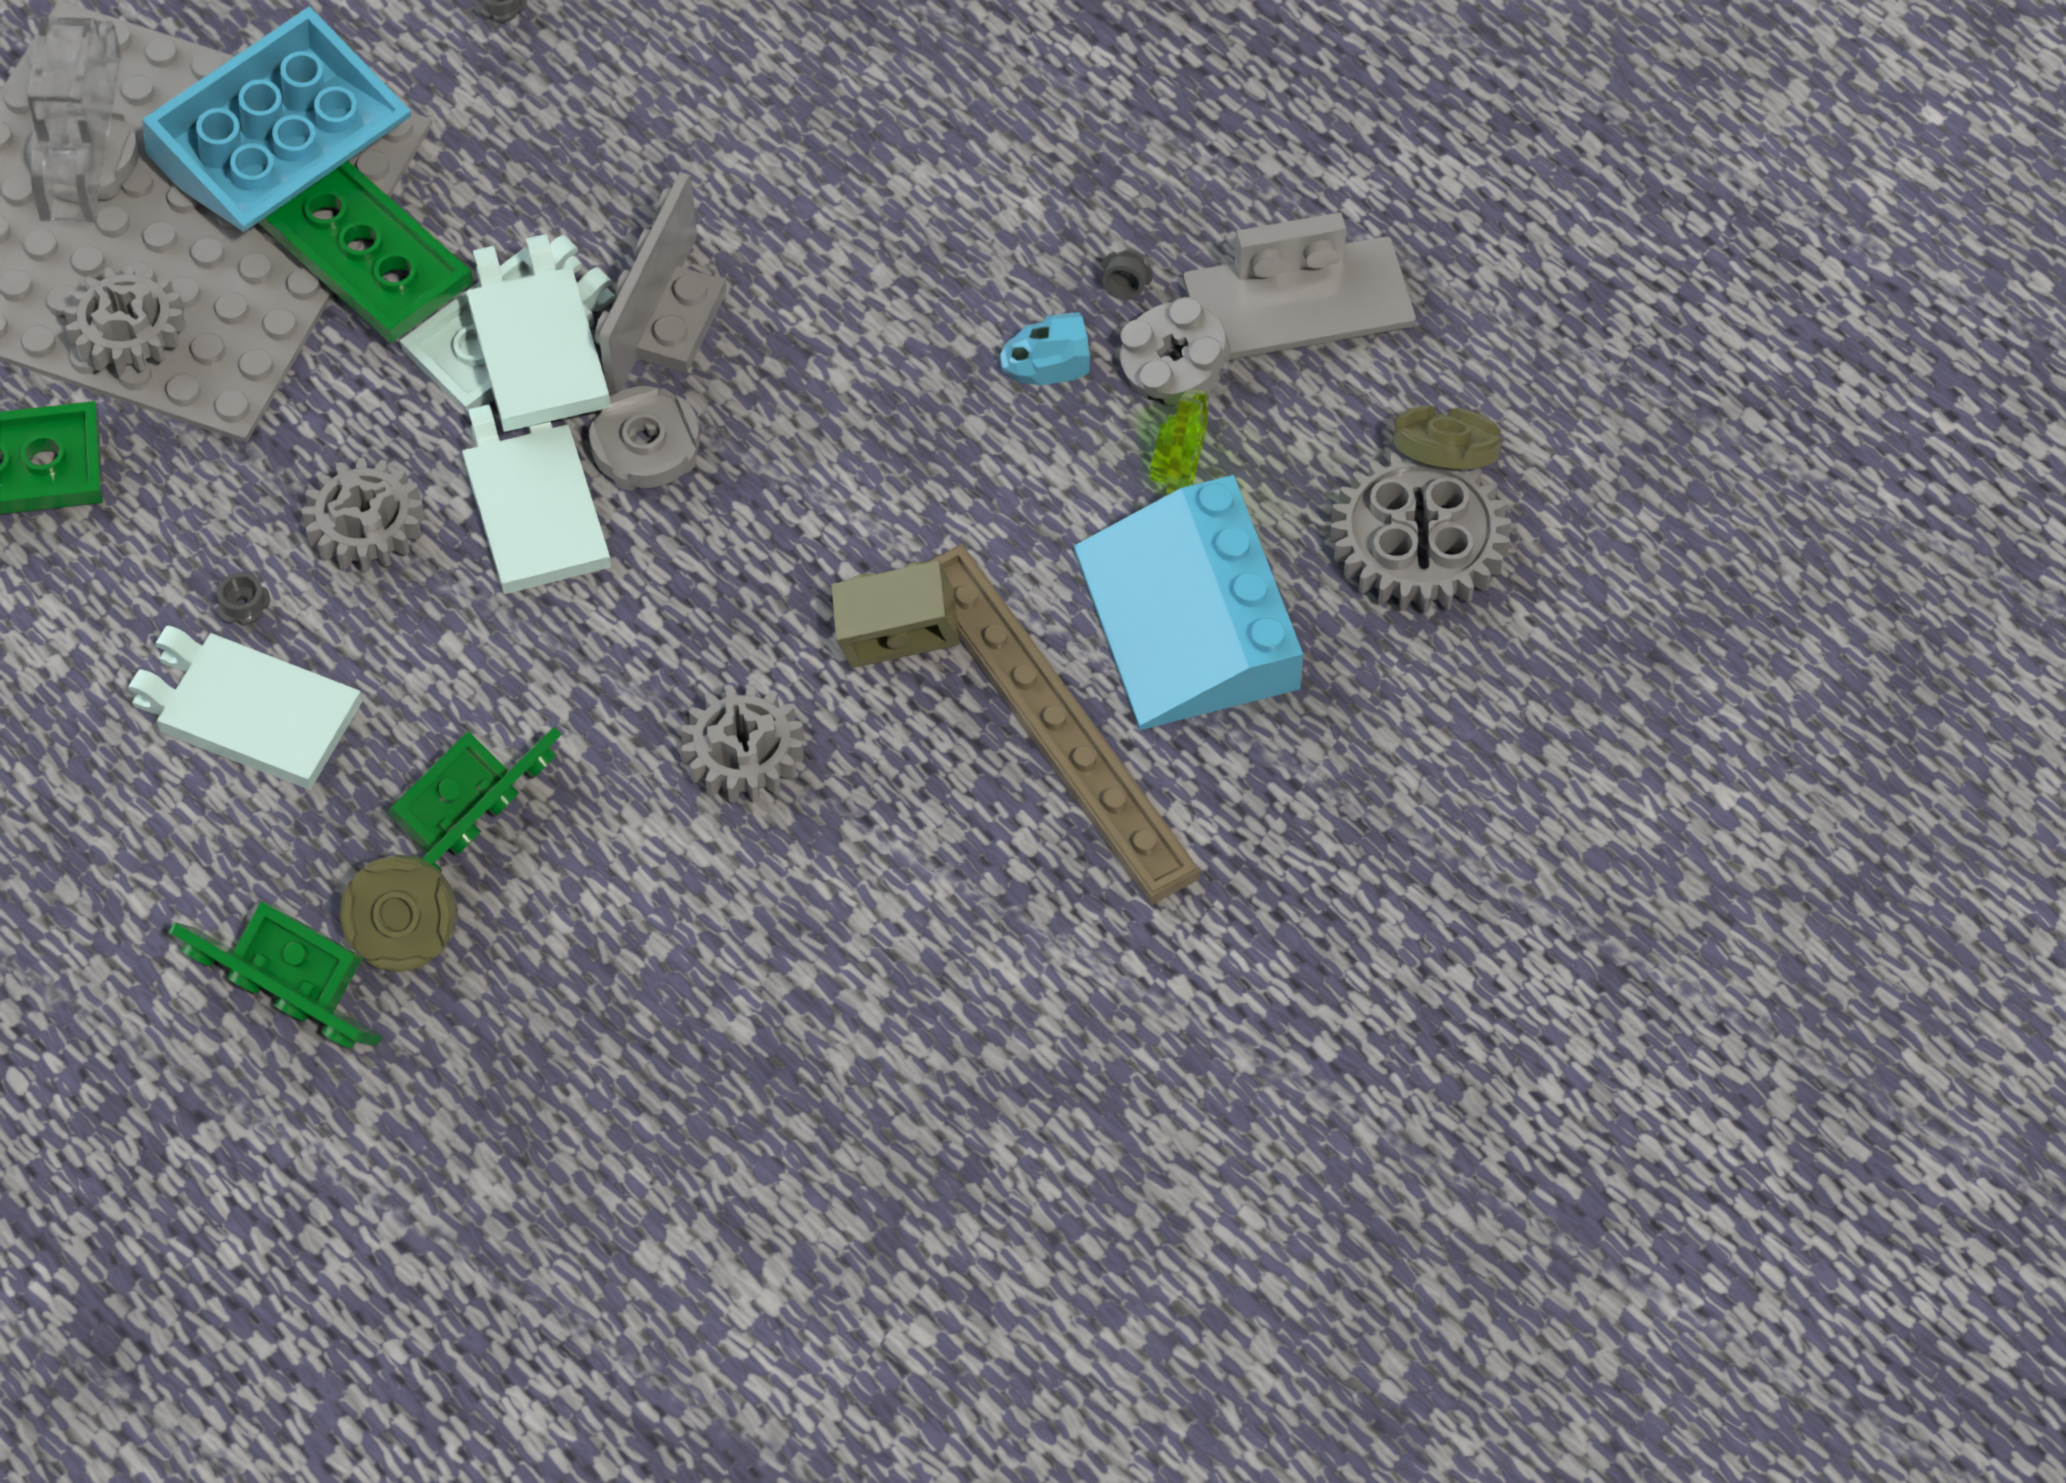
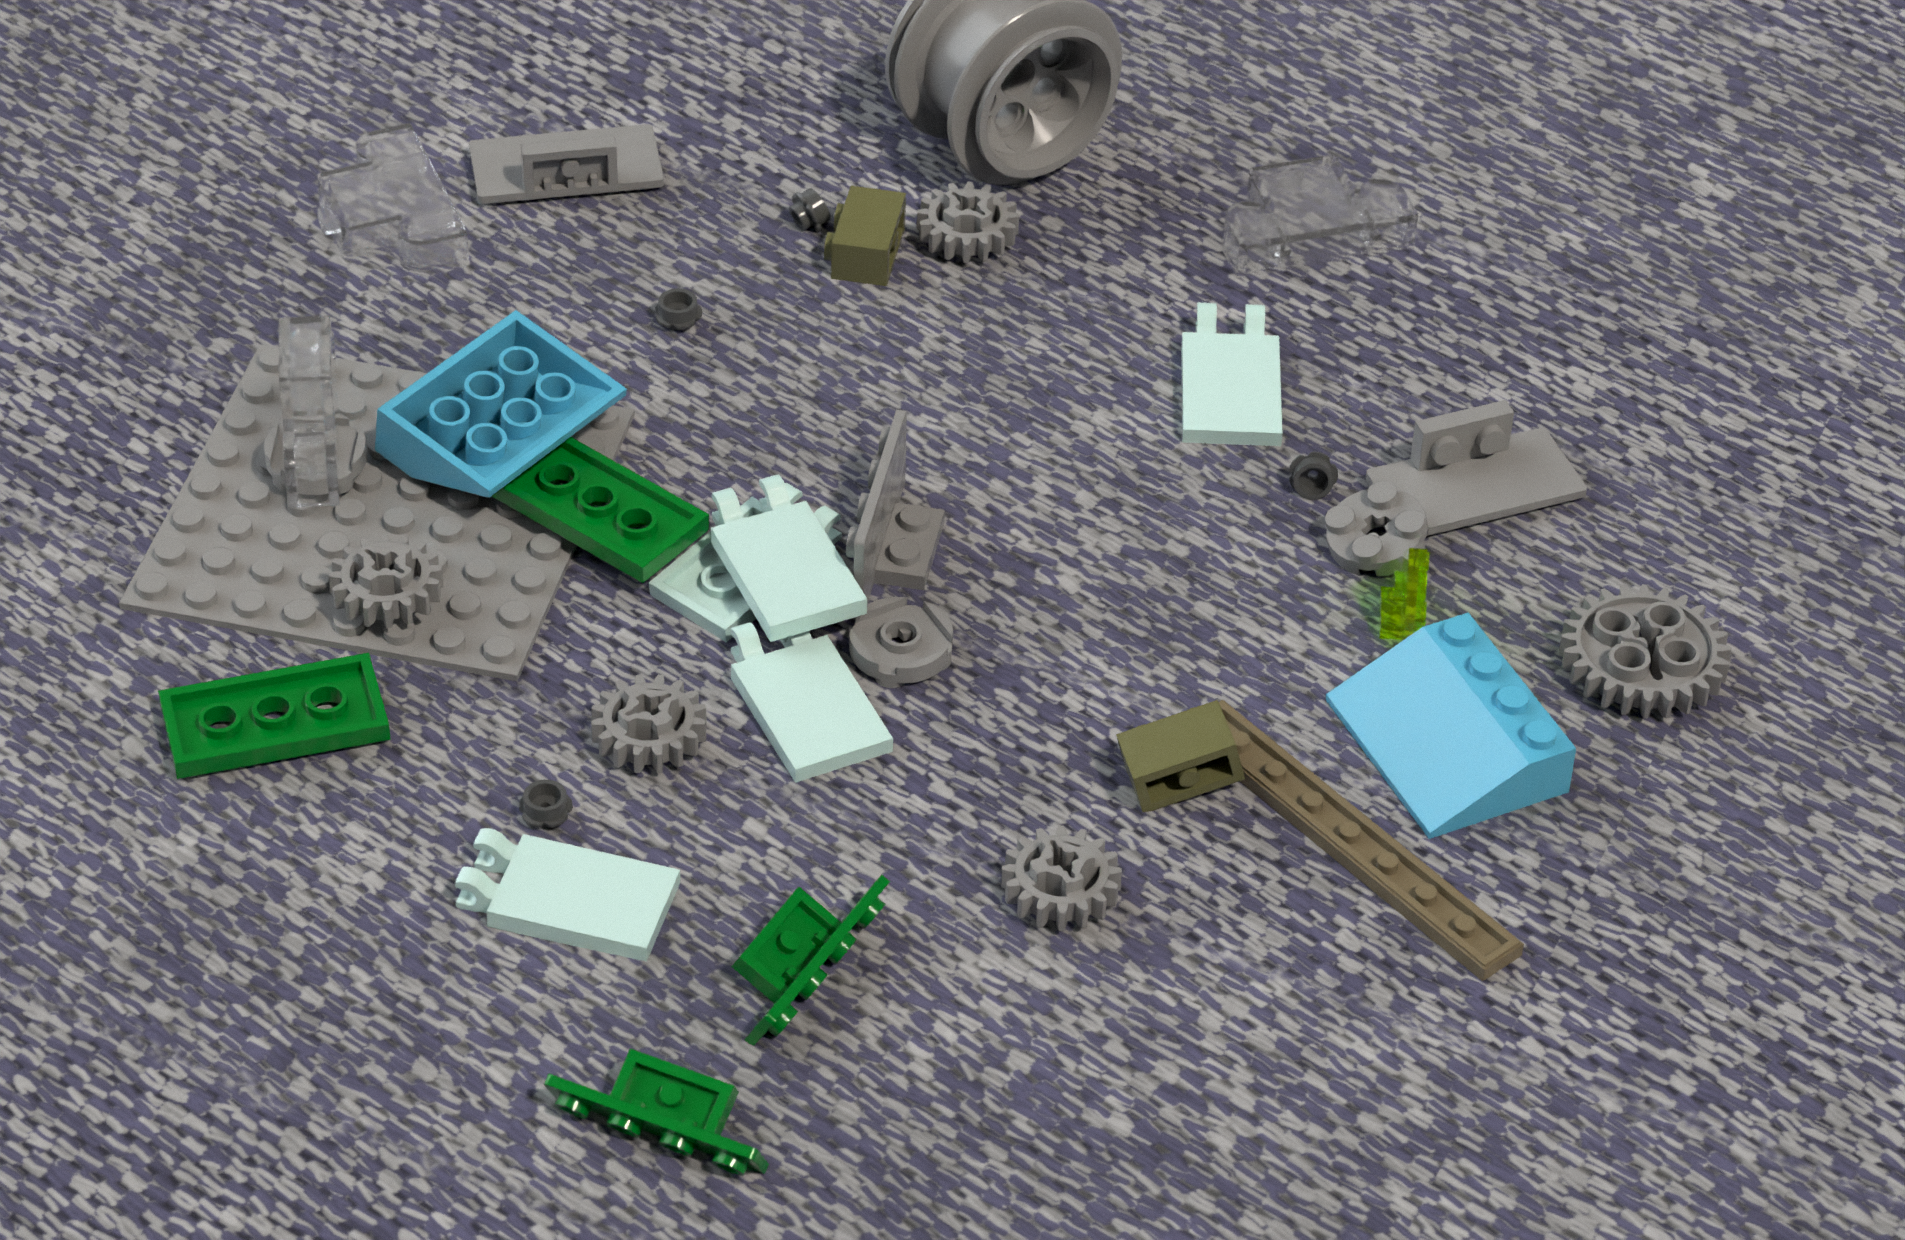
camera: 10 degrees left, 15 degrees down
(398, 913) = (767, 1047): olive tile -> none
(1048, 351) = (1261, 541): medium azure rock -> none
(1069, 144) = (1231, 382): none -> light aqua tile
(1447, 441) = (1649, 573): olive tile -> none

